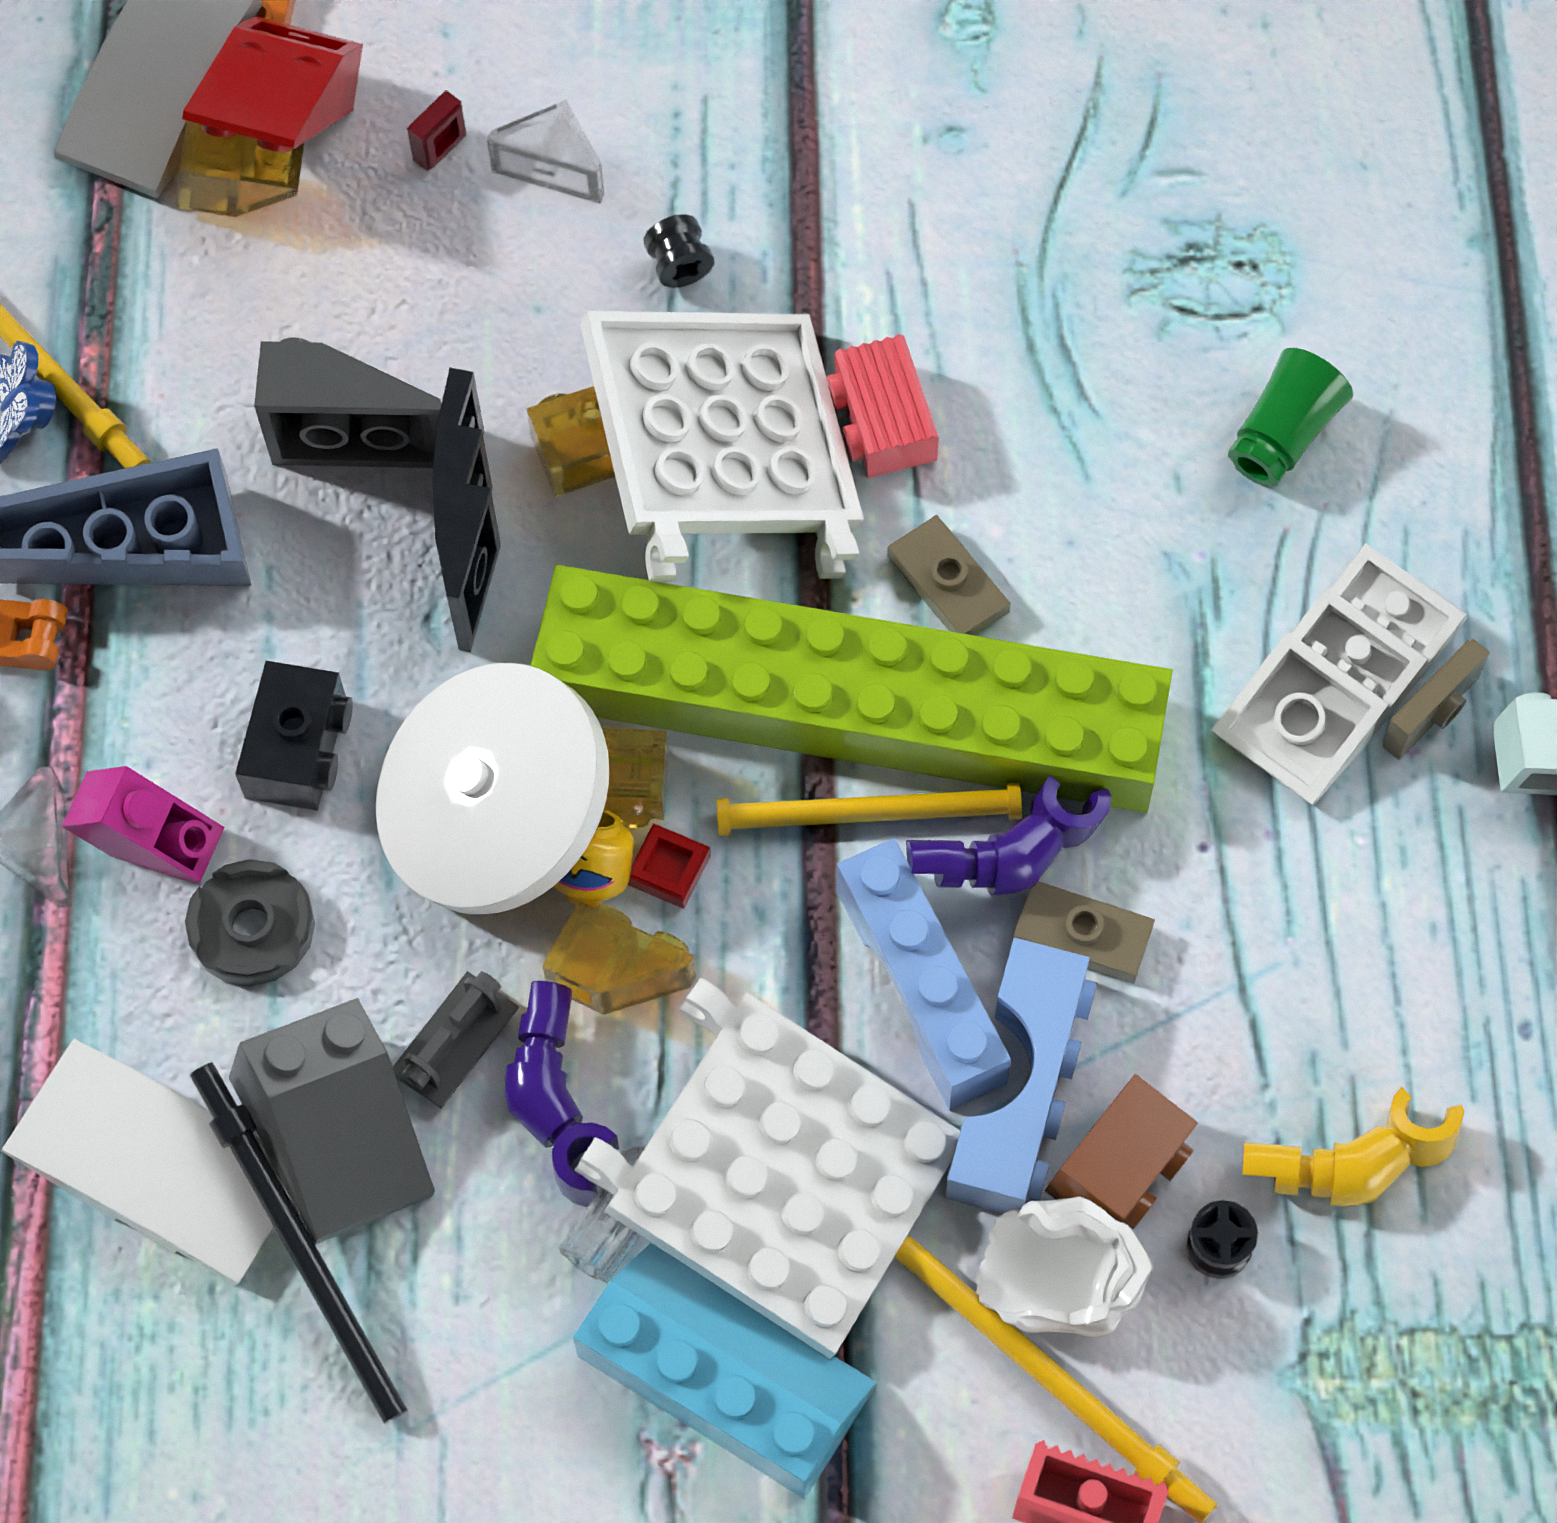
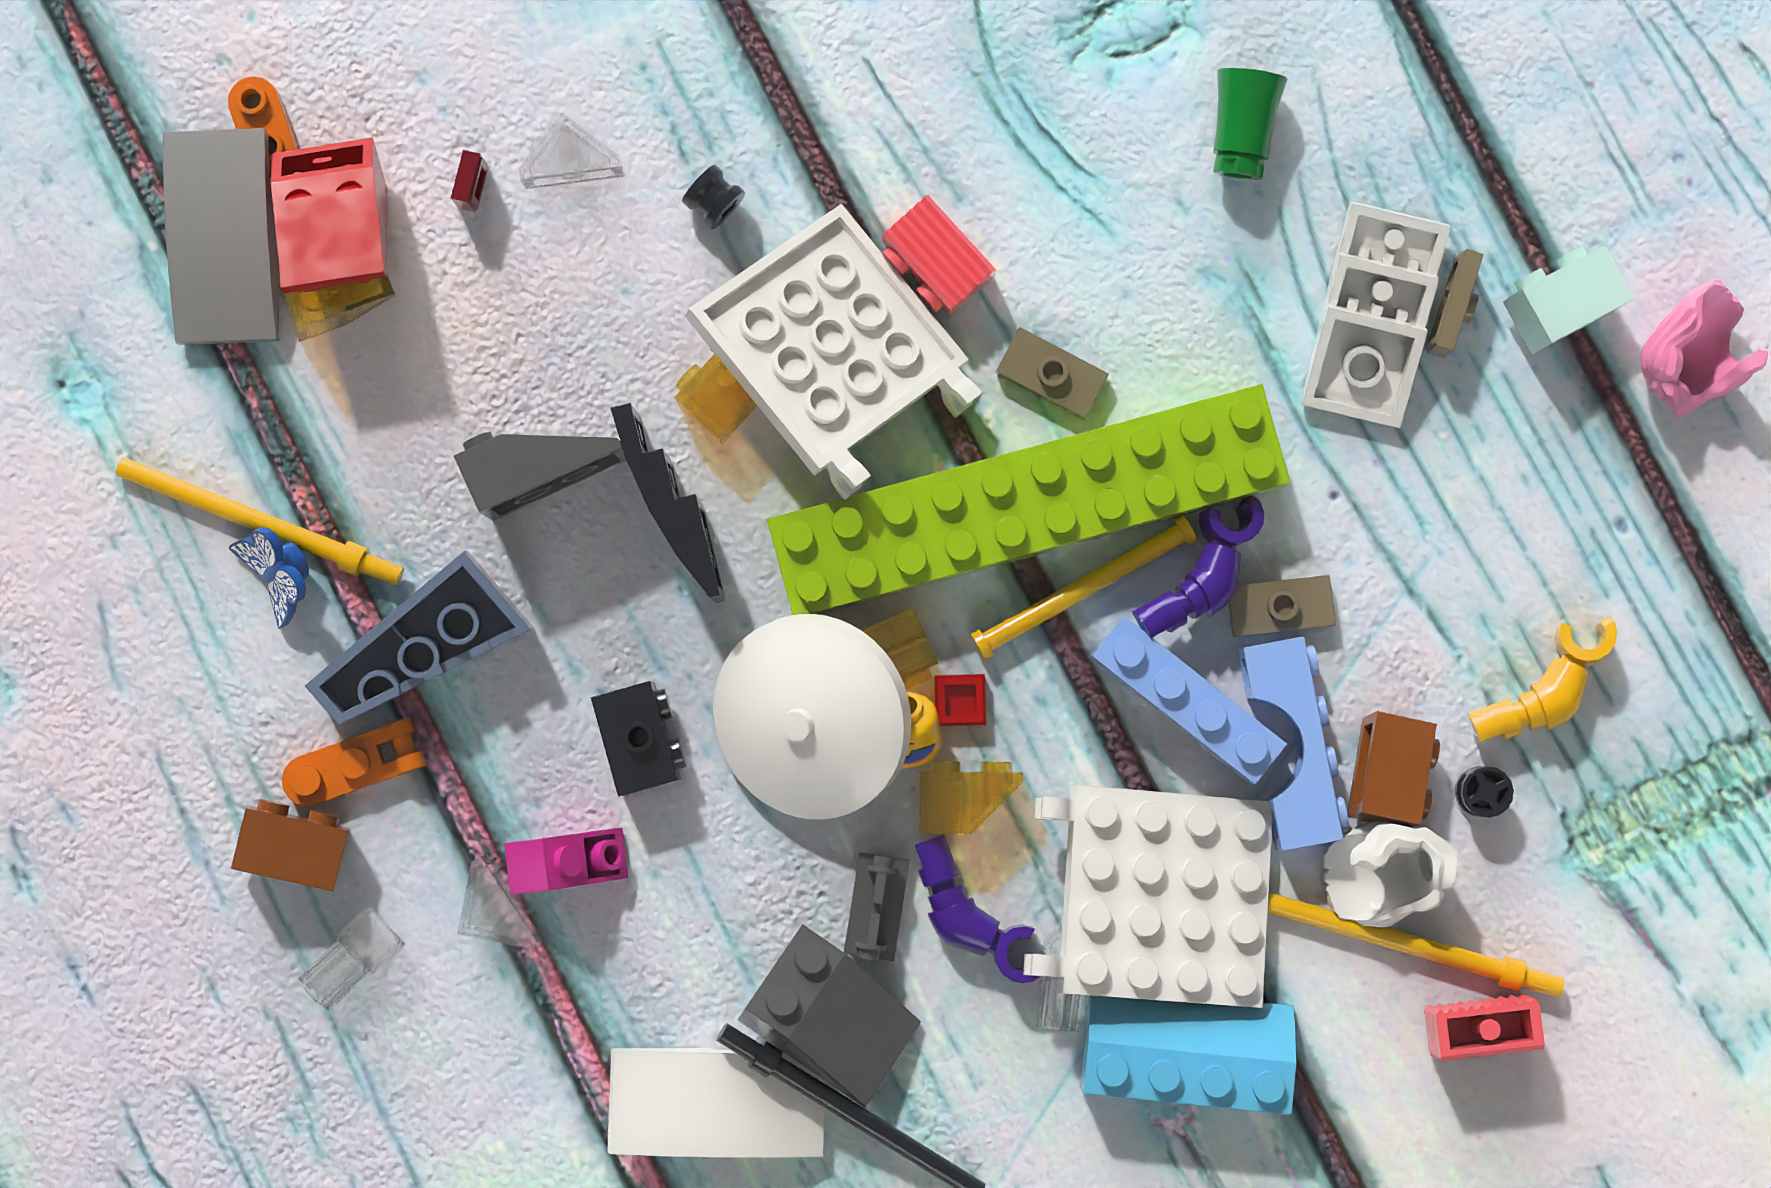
camera: 25 degrees left, 20 degrees up
(259, 956) = (651, 895): dark grey tile -> none

